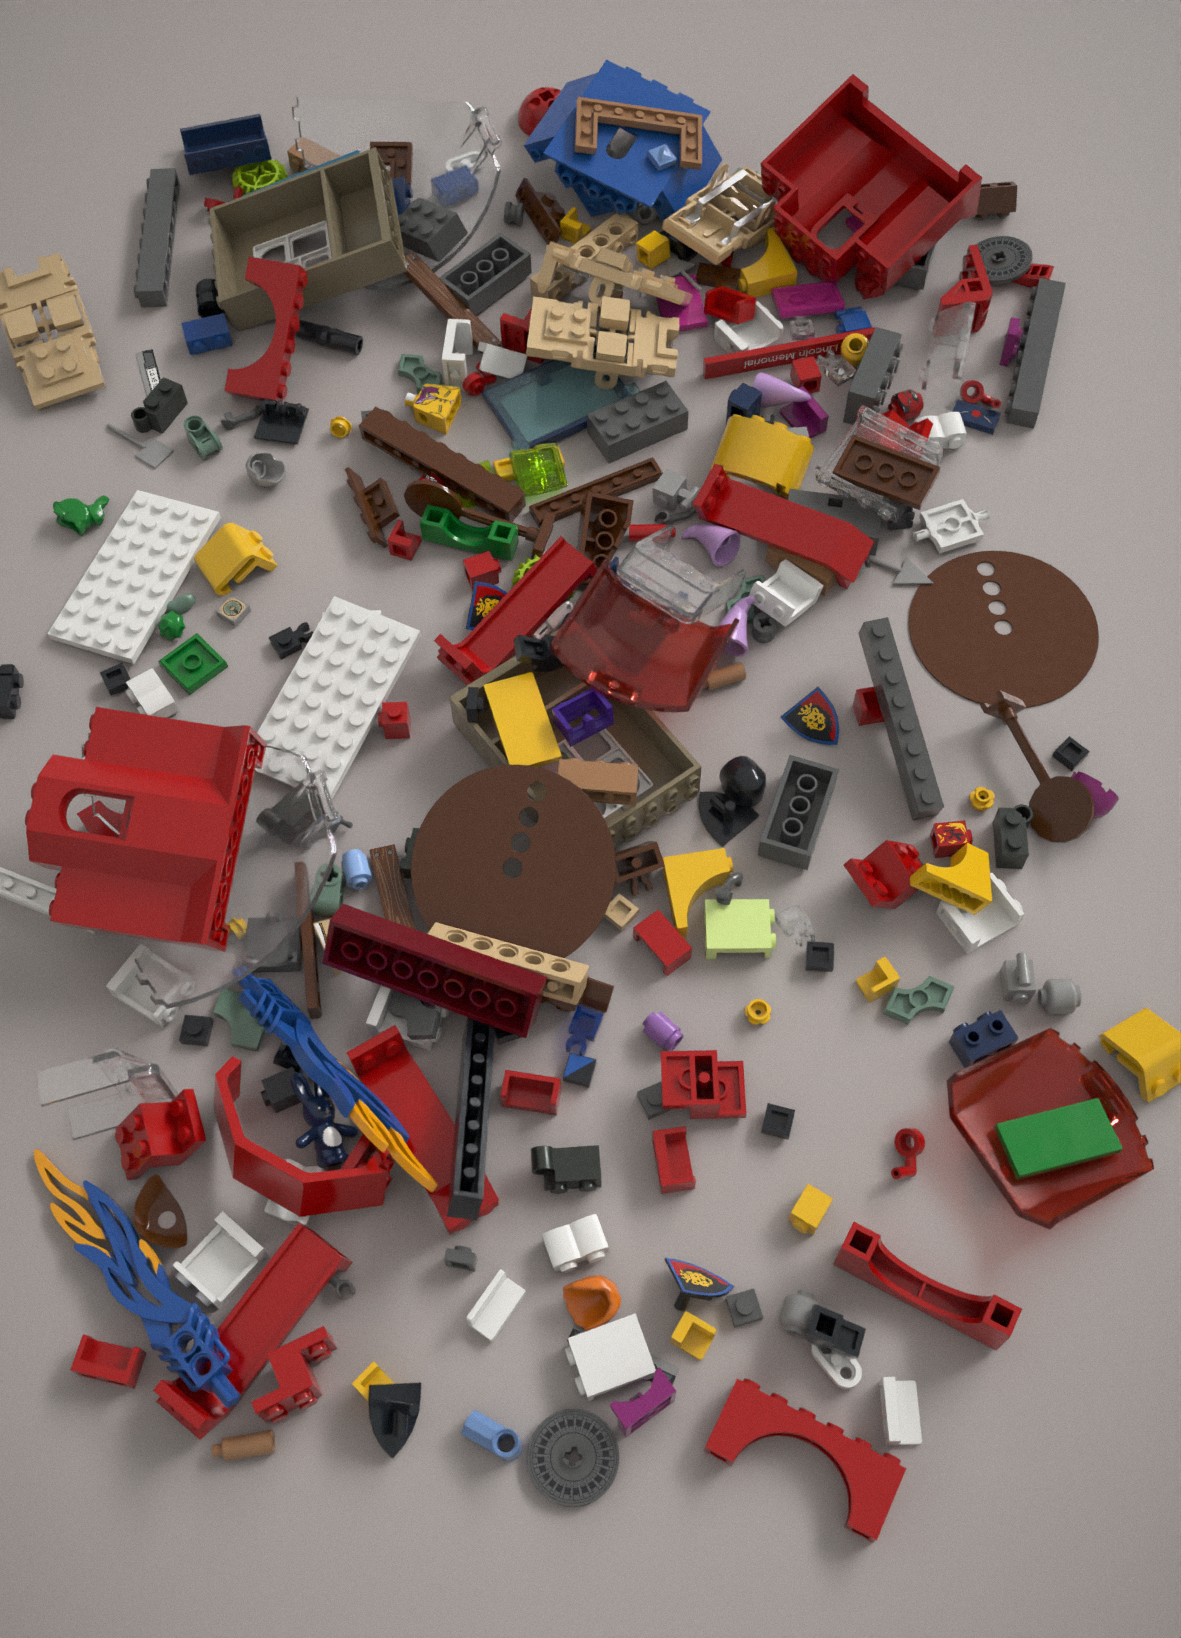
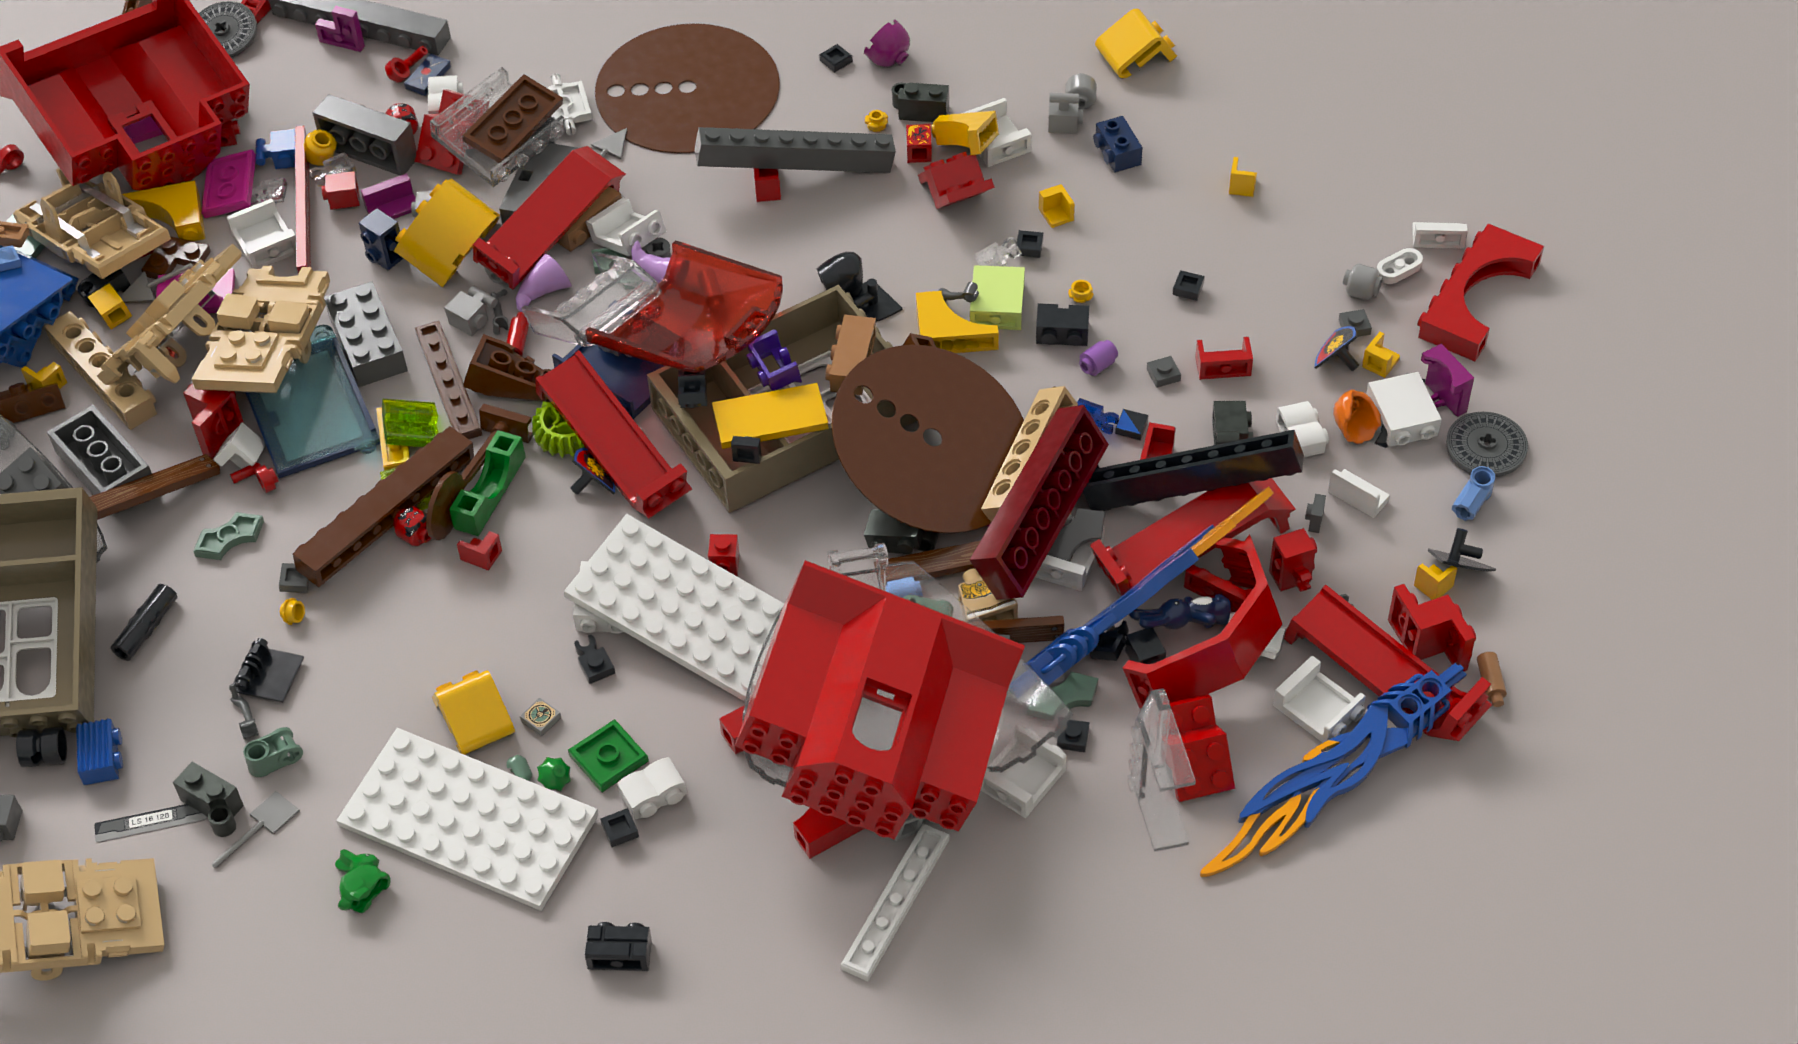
camera: 85 degrees left, 10 degrees down
(108, 1362) = (1420, 789): red panel -> none
(149, 1205) = (1290, 748): reddish brown piece -> none
(265, 469) = (343, 682): light grey hair -> none
(269, 374) = (103, 618): red arch -> none
(375, 504) = (419, 573): reddish brown bracket -> none
(383, 1230) = (1293, 560): none -> red brick
(435, 406) = (289, 516): yellow torso -> none
(456, 344) = (225, 489): white panel -> none
(482, 569) = (539, 479): red brick -> none
(663, 941) = (1005, 348): red panel -> none
(703, 1084) = (1158, 324): red bracket -> none
(705, 995) = (1062, 325): none -> black brick
(729, 305) = (226, 231): red panel -> none
(777, 391) = (362, 207): lavender hat -> none
(798, 812) = (881, 239): dark grey brick -> none
(810, 1210) = (1271, 269): yellow brick -> none
(814, 718) = (777, 220): shield -> none
(831, 1331) = (1381, 254): black brick -> none
(905, 1148) = (1218, 202): red plate -> none
(908, 1003) = (1072, 178): sand green tile -> none
(946, 356) = (358, 57): clear windscreen -> none
(950, 1177) = (1241, 182): none -> yellow panel
(972, 287) = (272, 44): red bracket -> none
(979, 1317) = (1323, 221): red arch -> none
(1032, 1079) = (1209, 109): clear red windscreen -> none
(1057, 1138) = (1212, 106): green tile -> none
(1060, 804) = (894, 60): reddish brown piece -> none

